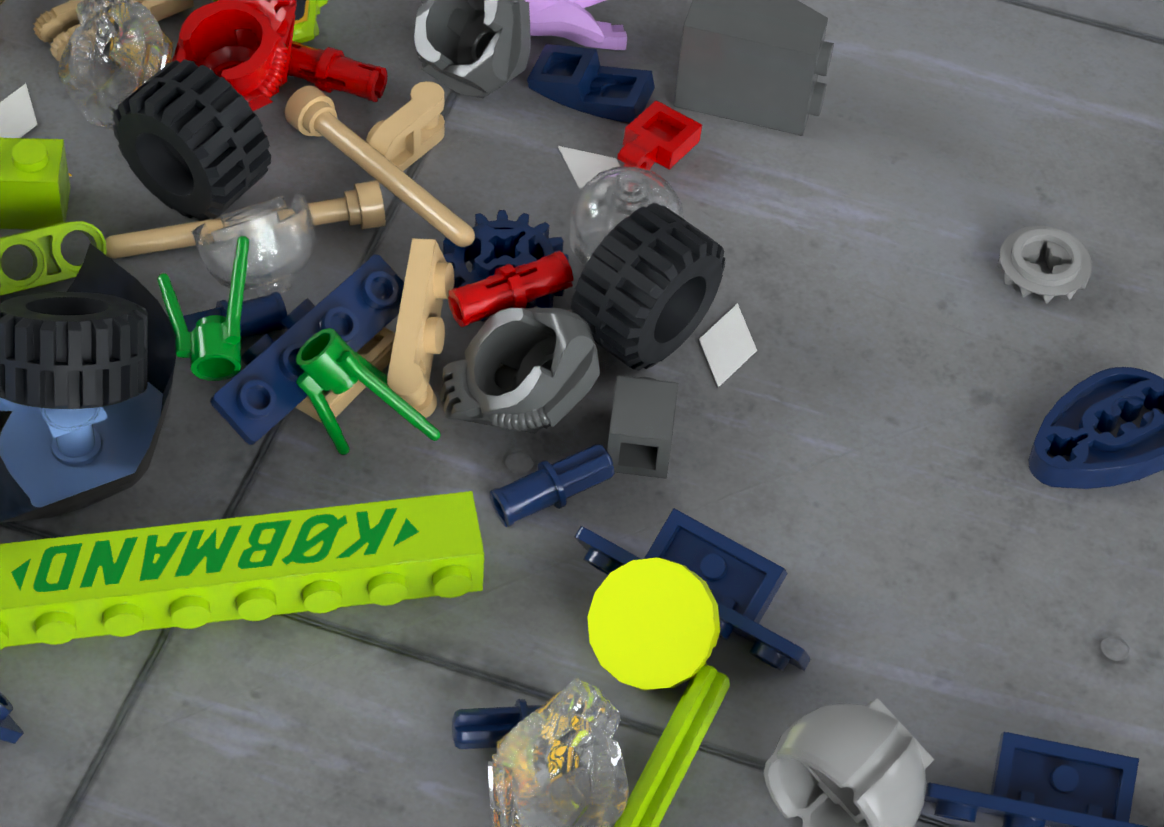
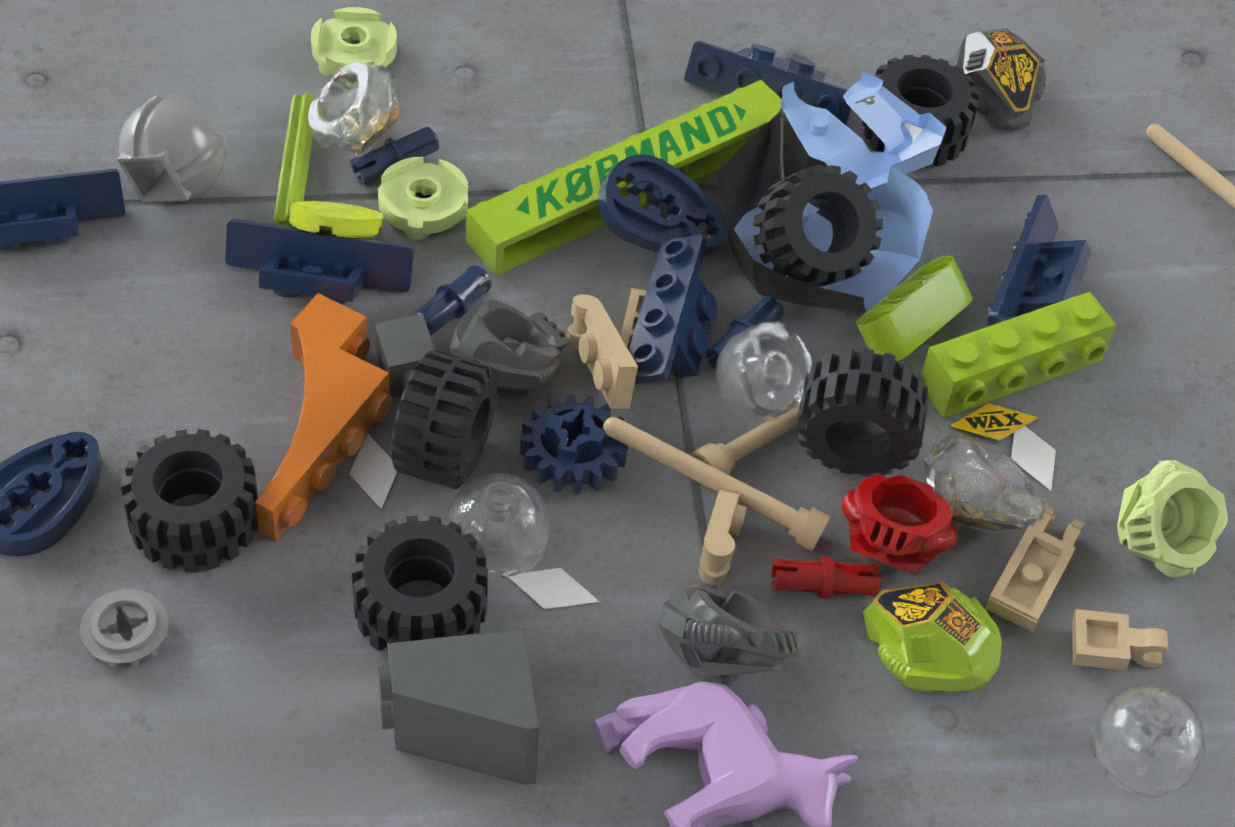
camera: 155 degrees right, 0 degrees up
(215, 341) = (727, 263): green plant -> none
(230, 482) = (663, 183): none -> dark blue piece
(336, 367) = (634, 275): green plant -> none
(510, 288) = (549, 387): red pin -> none
(512, 614) = (423, 215): none -> yellowish green plate
(579, 82) = (604, 666): dark blue slope -> none
(658, 137) = (515, 606): red plate -> none
(744, 172) = (416, 553): none -> black tyre
(747, 393) = (337, 409): none -> orange arch
(939, 368) = (186, 467): none -> black tyre

